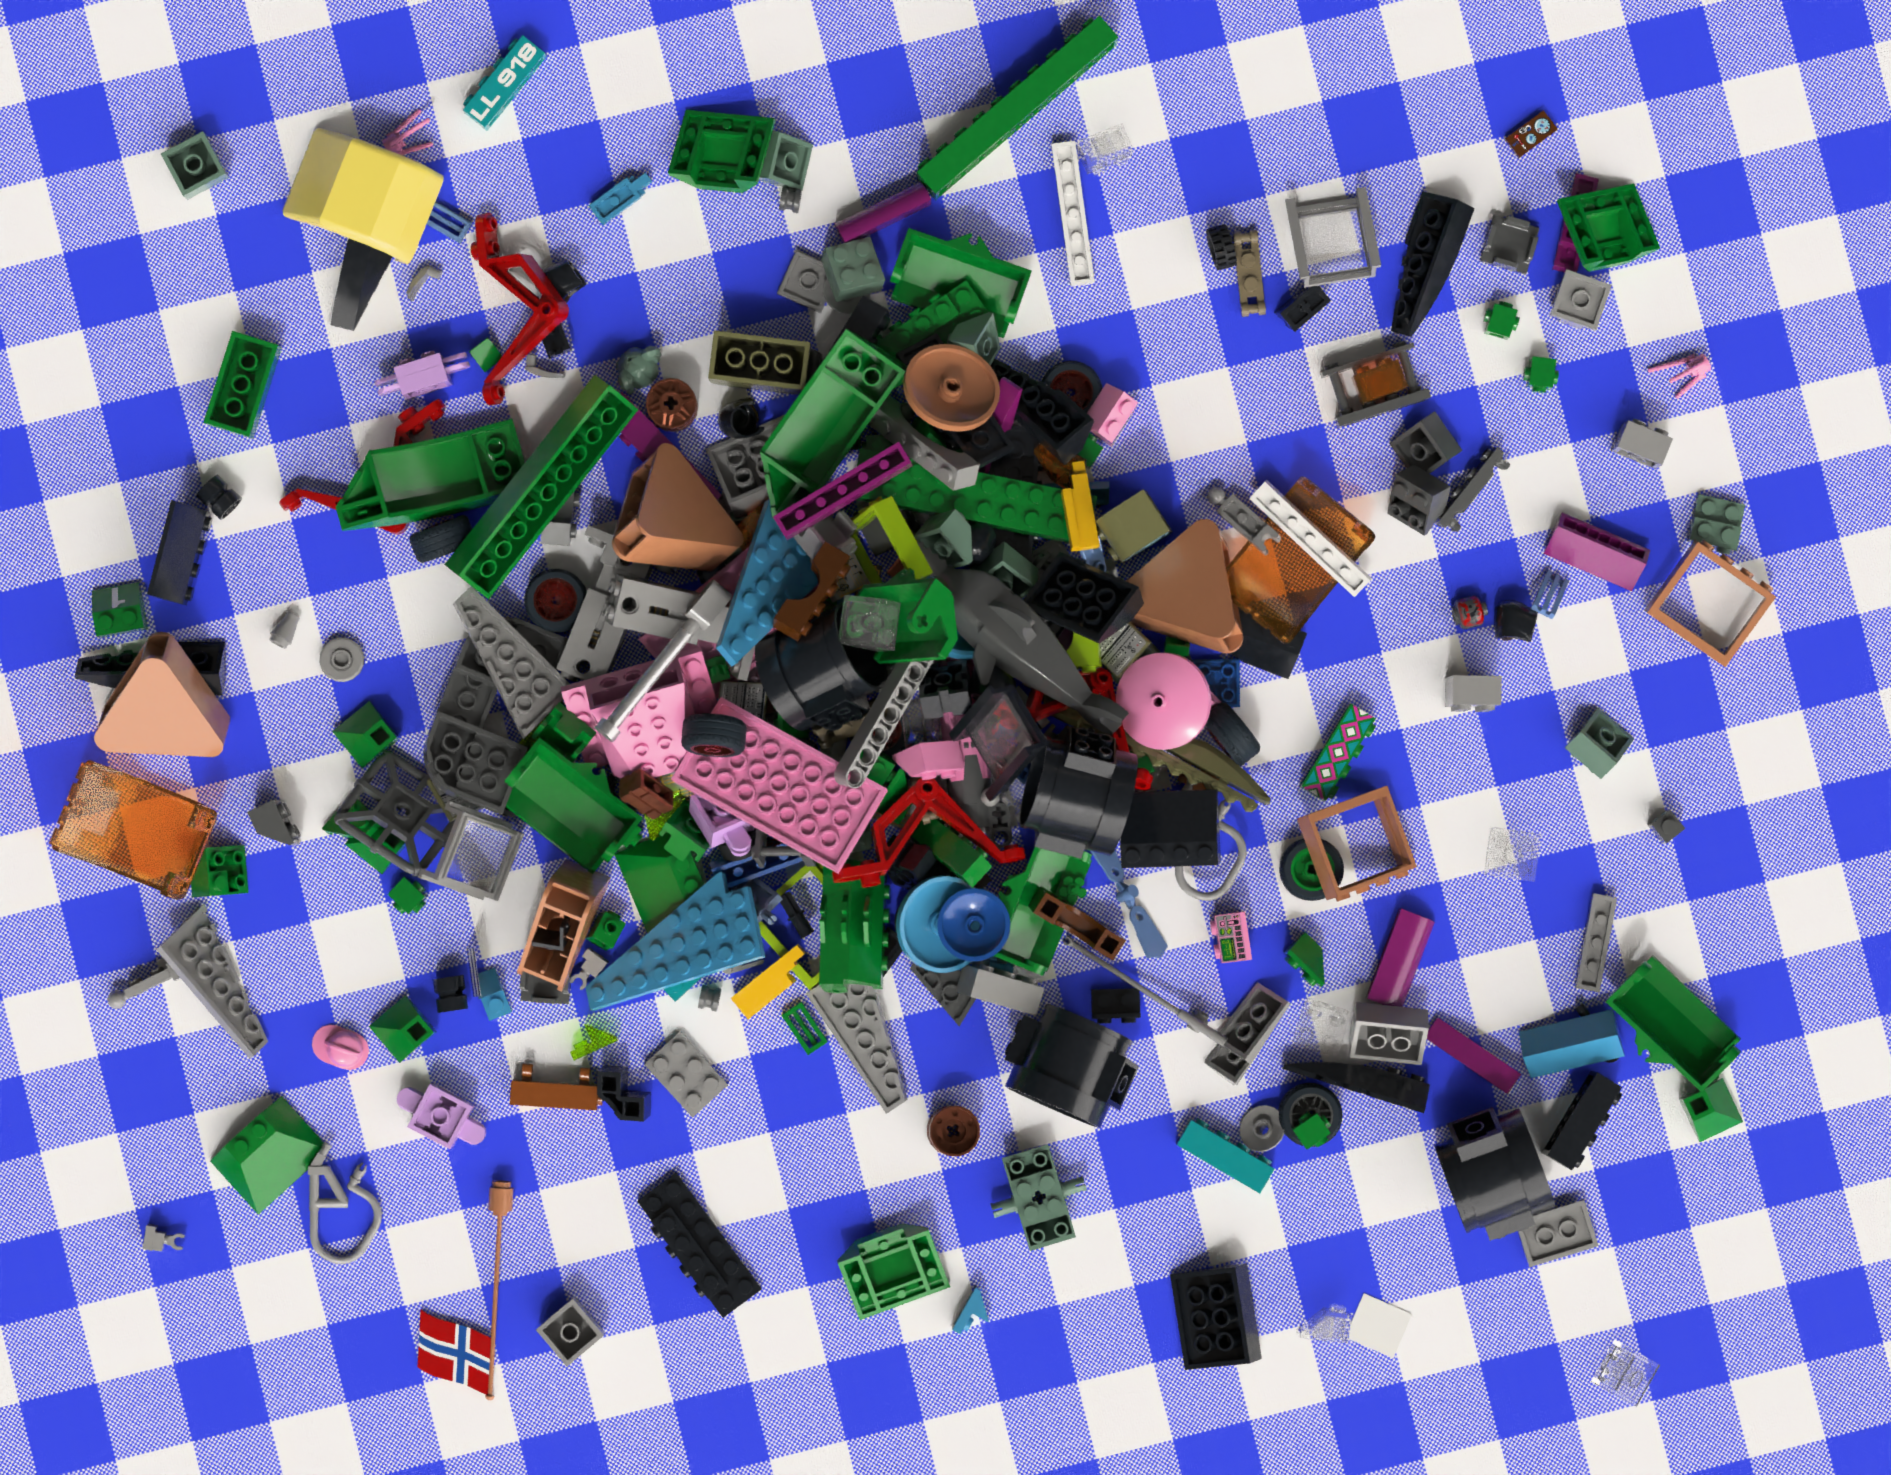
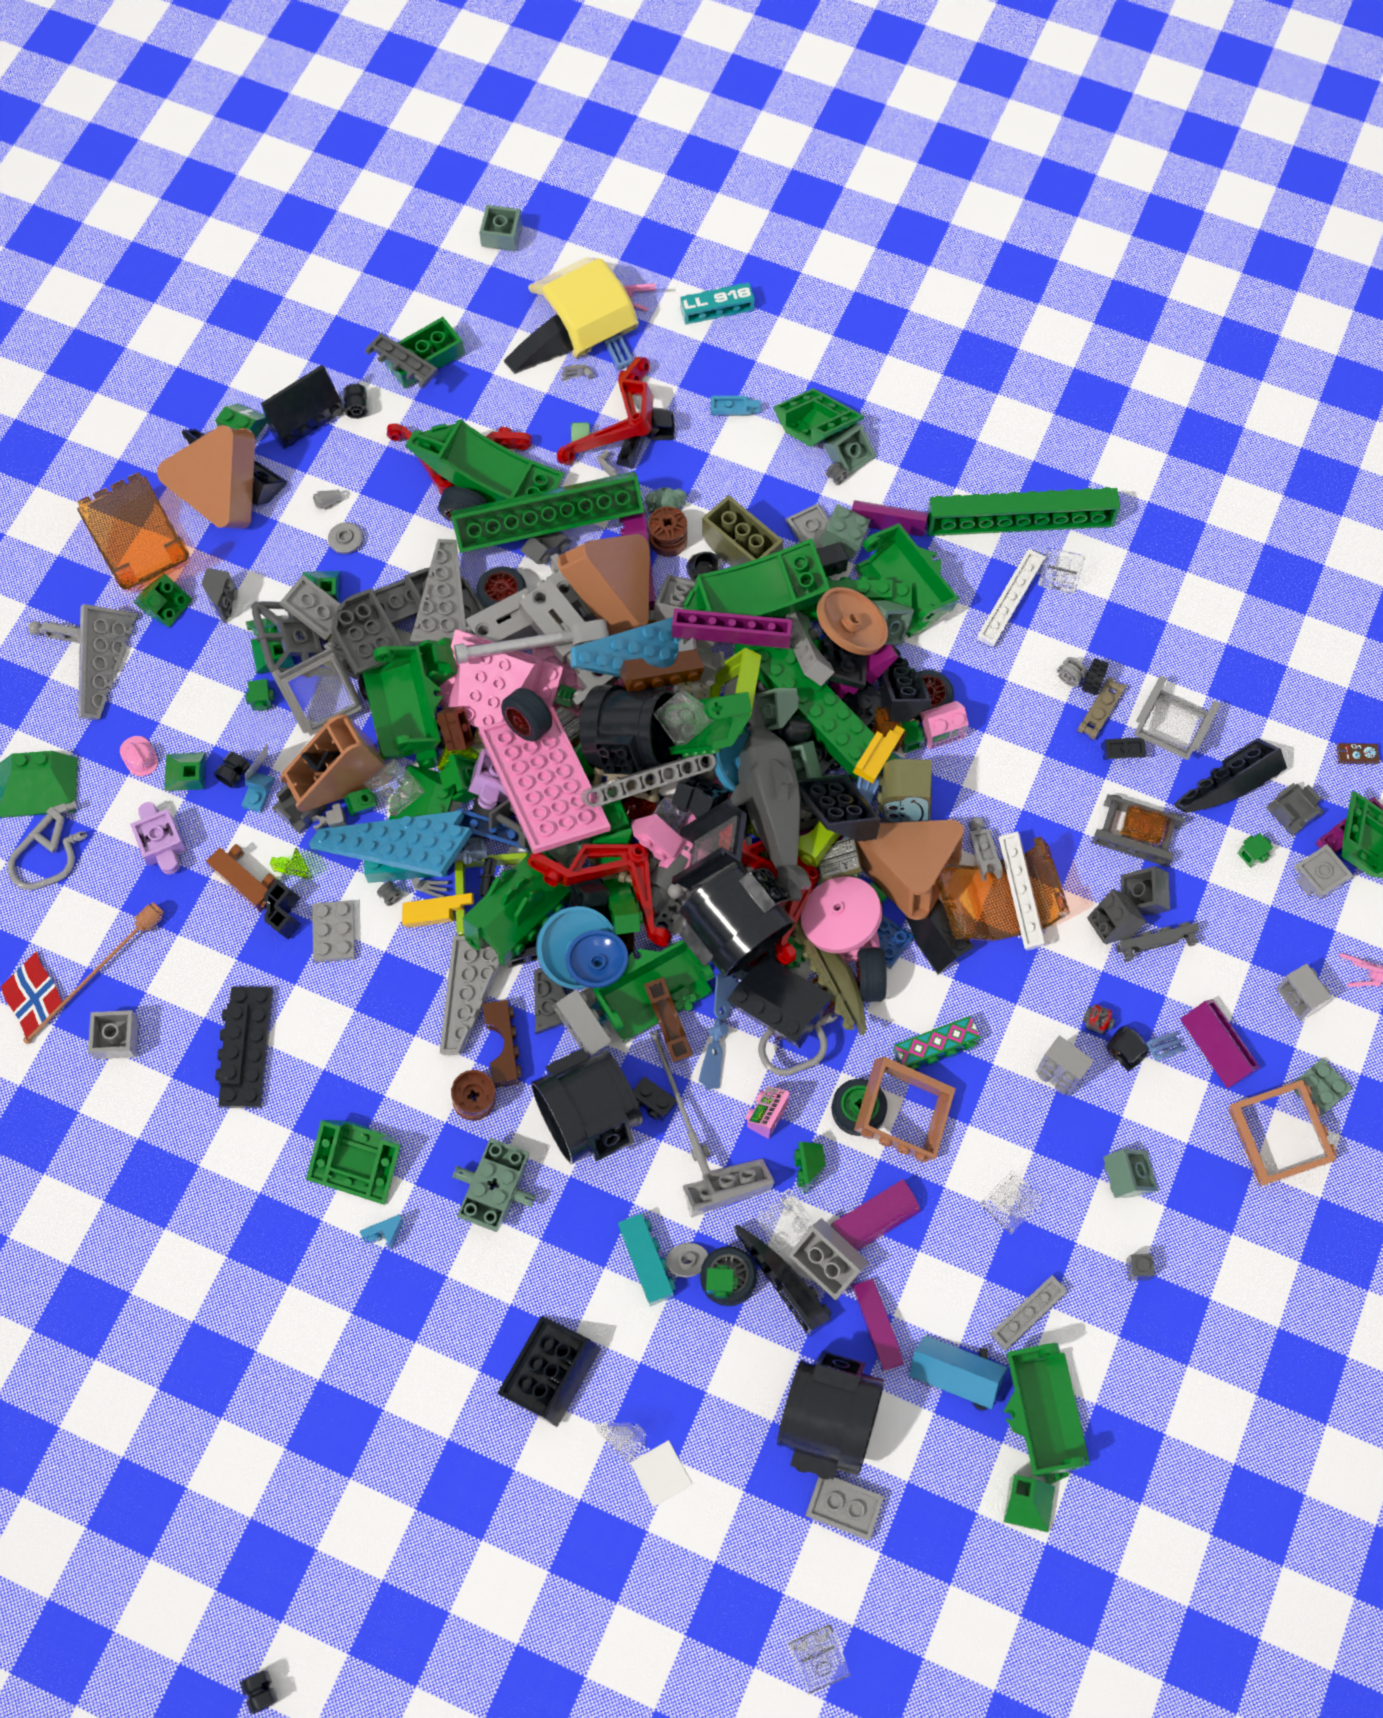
camera: 45 degrees right, 20 degrees down
(237, 419) = (403, 359): none -> dark grey hinge
(390, 770) = (311, 606): none -> light grey plate
(422, 375) = (532, 415): lavender brick -> none
(631, 892) = (395, 787): none -> clear bracket
(794, 1011) = (432, 975): green tile -> none
(959, 1081) = (498, 1019): none -> reddish brown arch
(1194, 257) = (1072, 672): none -> light grey wheel
(1541, 374) = (1260, 901): green brick -> none
(1582, 1120) = (924, 1432): black brick -> none

